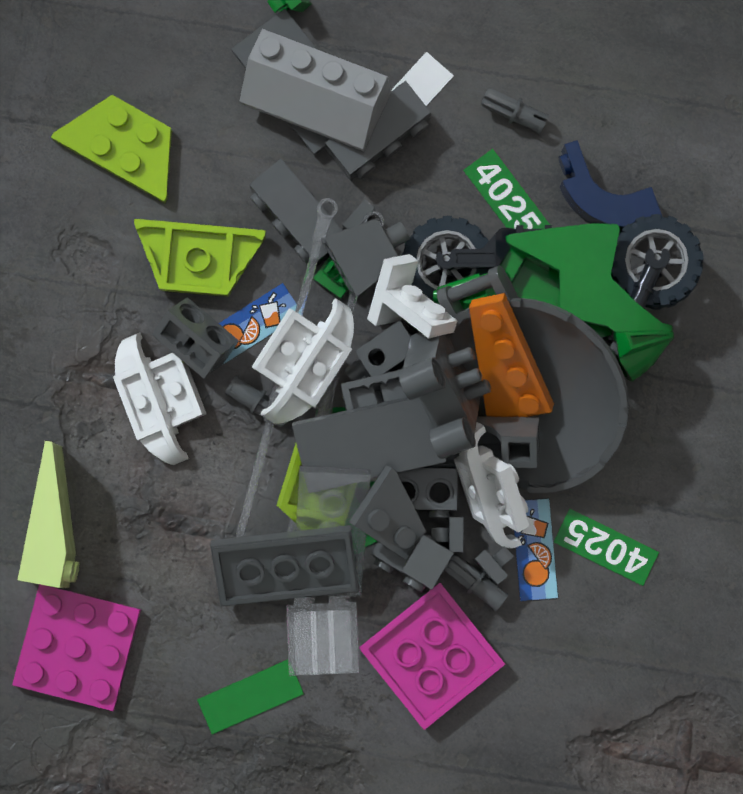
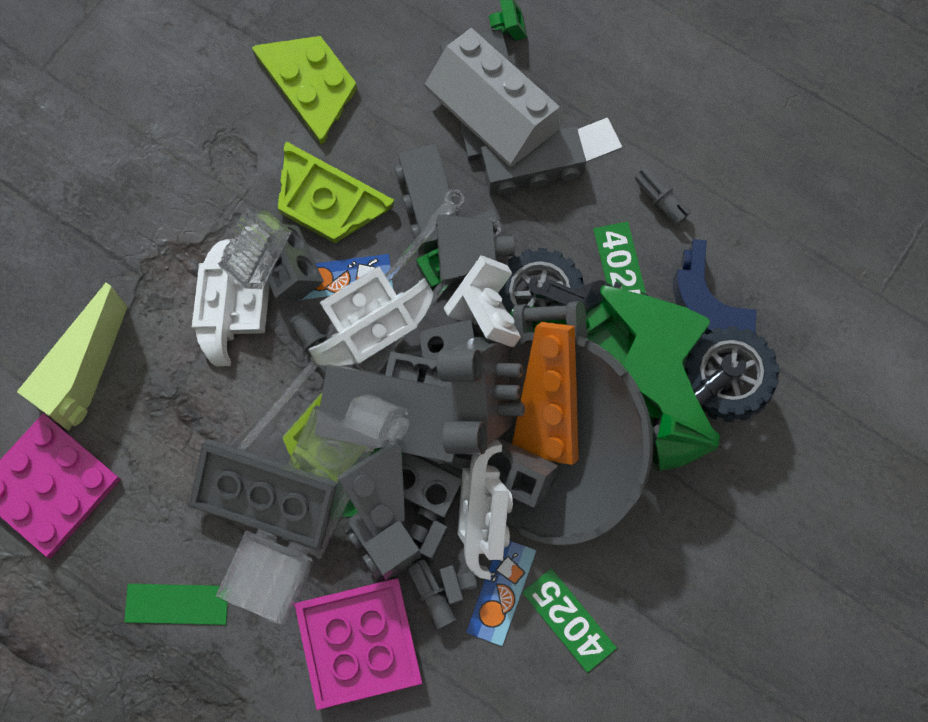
camera: 30 degrees right, 10 degrees down
(164, 342) = (254, 248): none -> clear brick
(366, 460) = (375, 420): none -> clear brick

